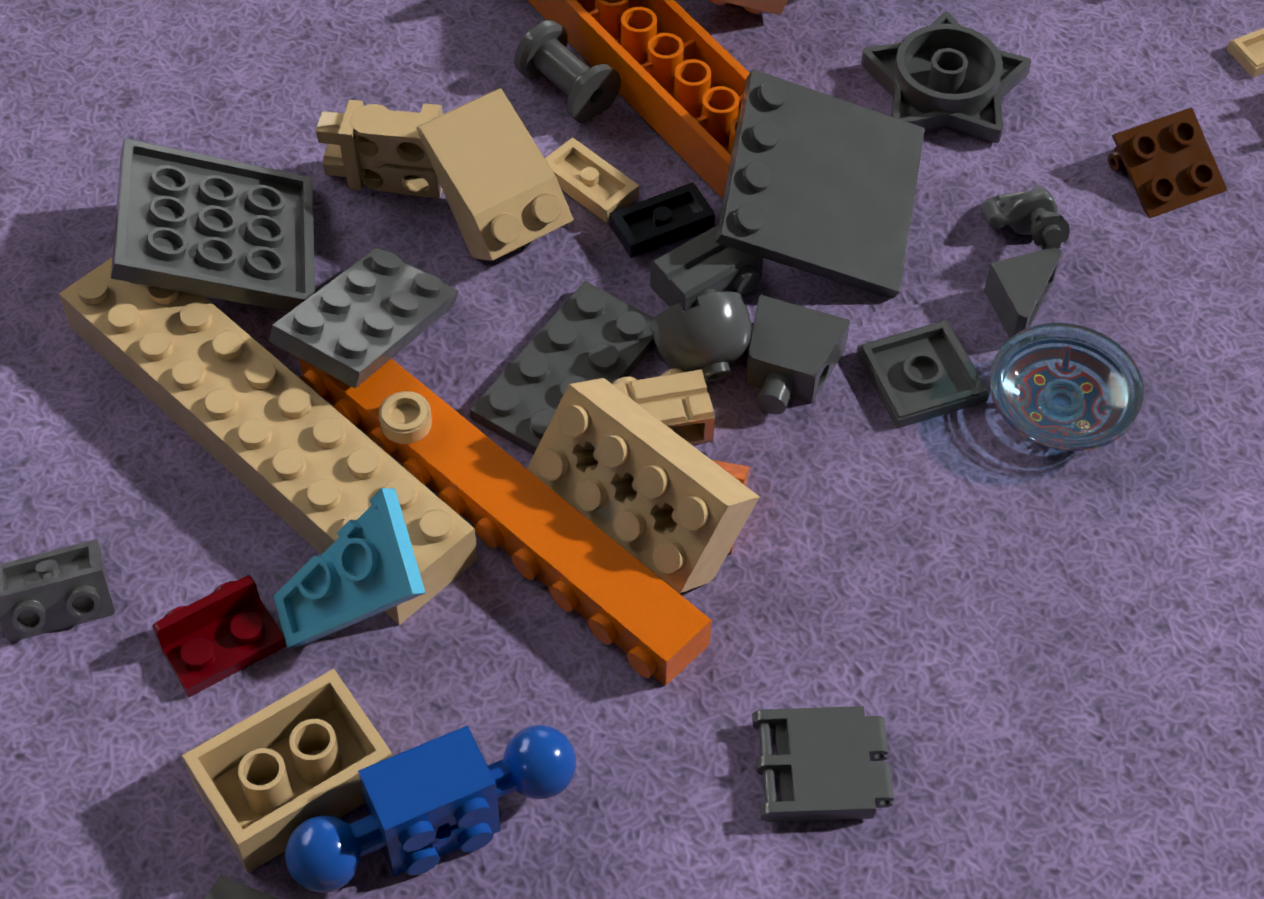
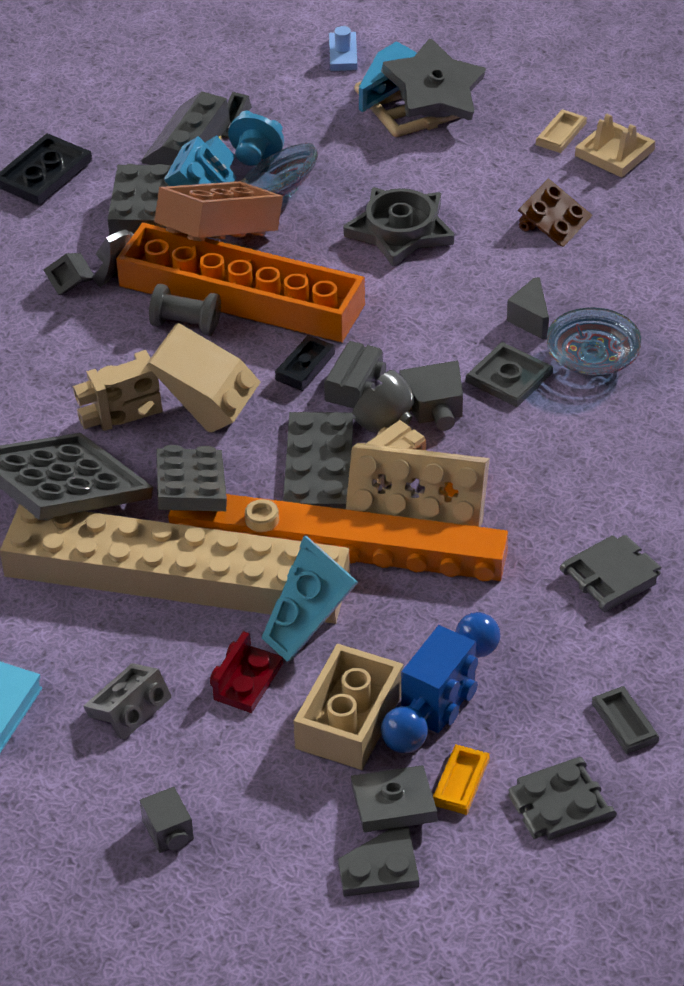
camera: 30 degrees left, 10 degrees down
(591, 179) = (260, 361): tan plate -> none
(821, 185) = (387, 300): dark grey plate -> none
(1028, 214) = (504, 269): dark grey piece -> none

